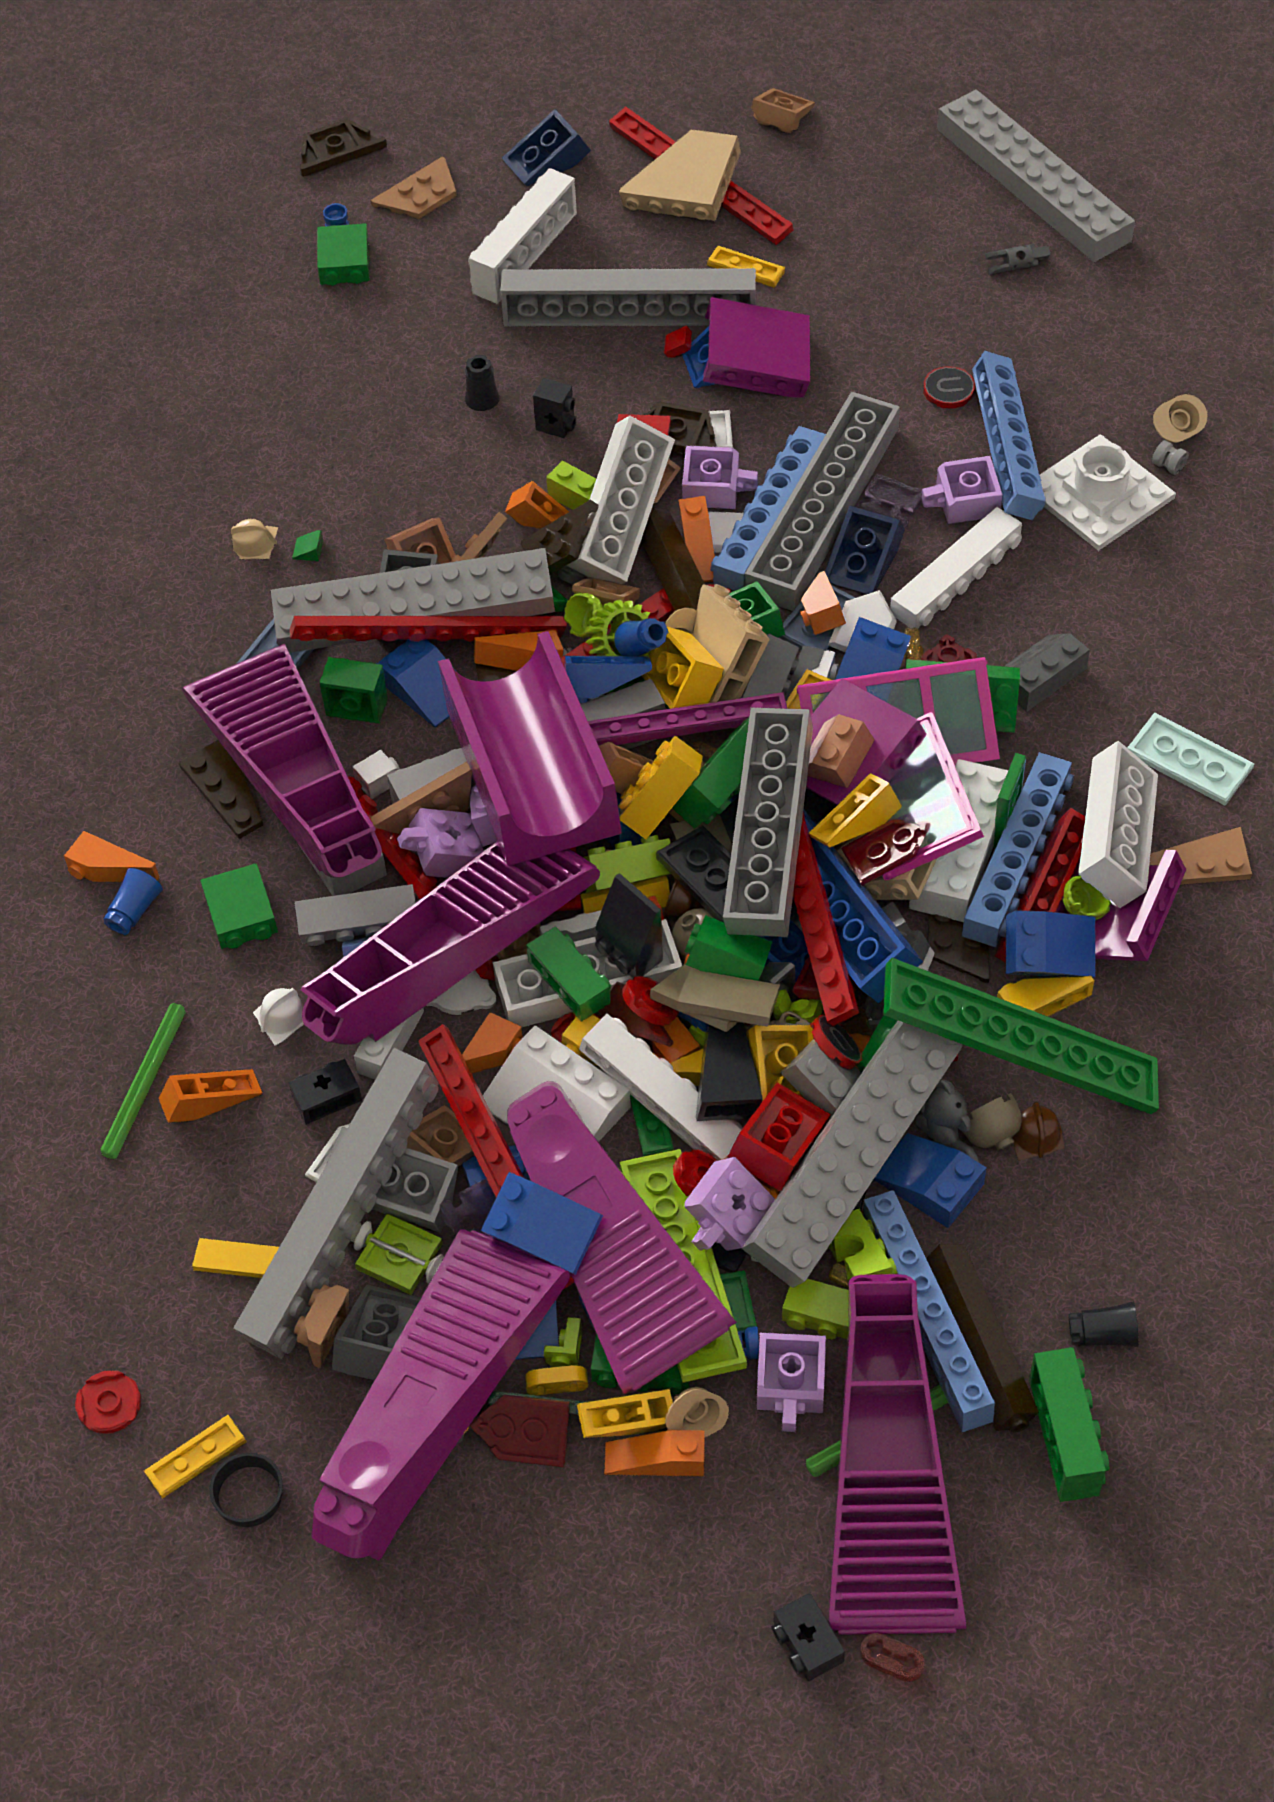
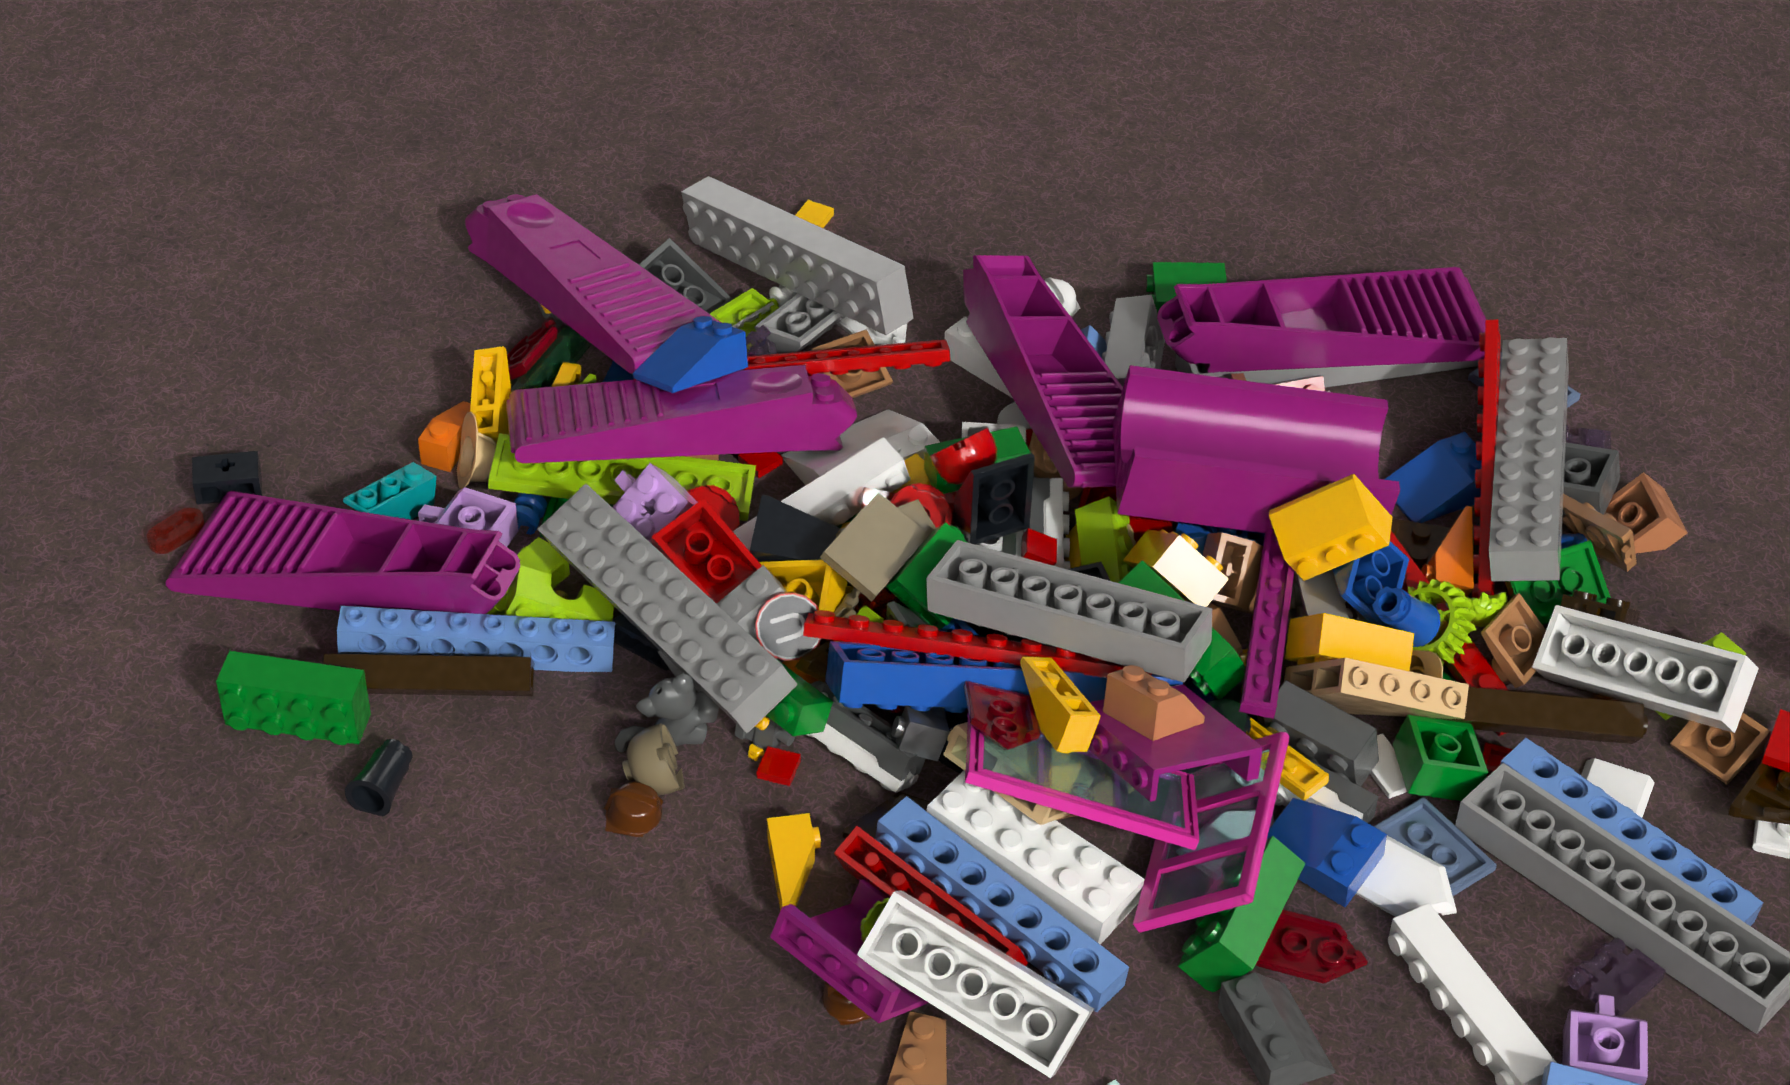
camera: 105 degrees right, 10 degrees down
(103, 861) = (1283, 216): orange slope -> none
(105, 1411) = (701, 143): red tile -> none
(131, 900) = (1227, 226): blue plant -> none
(142, 1081) = (1021, 207): bright green axle -> none
(195, 1456) = (629, 175): yellow tile -> none
(202, 1094) = (979, 225): orange slope -> none
(238, 1462) = (578, 174): black tyre -> none
(253, 539) = (1701, 397): tan piece -> none
(308, 546) = (1676, 440): green slope -> none
(317, 1103) = (943, 303): black brick -> none
(323, 1321) = (696, 239): medium nougat slope -> none
(353, 690) = (1435, 409): green brick -> none
(492, 1043) = (943, 417): orange slope -> none
(534, 506) = (1686, 619): orange slope -> none
(599, 954) = (964, 456): none -> red cylinder
(601, 675) = (1330, 527): none -> yellow slope
(697, 534) = (1598, 751): orange slope -> none
(715, 475) = (1693, 795): lavender hinge -> none
(785, 1453) = (396, 494): none -> teal slope
(821, 606) = (1439, 832): slope -> none
(864, 550) = (1531, 917): dark blue slope -> none
(914, 649) = (1348, 916): clear yellow axle -> none
(932, 1177) = (607, 700): blue slope -> none
(1009, 795) = (1056, 881): green tile -> none
(1020, 1036) = (709, 767): green plate -> none
(1050, 944) = (833, 854): blue slope -> none

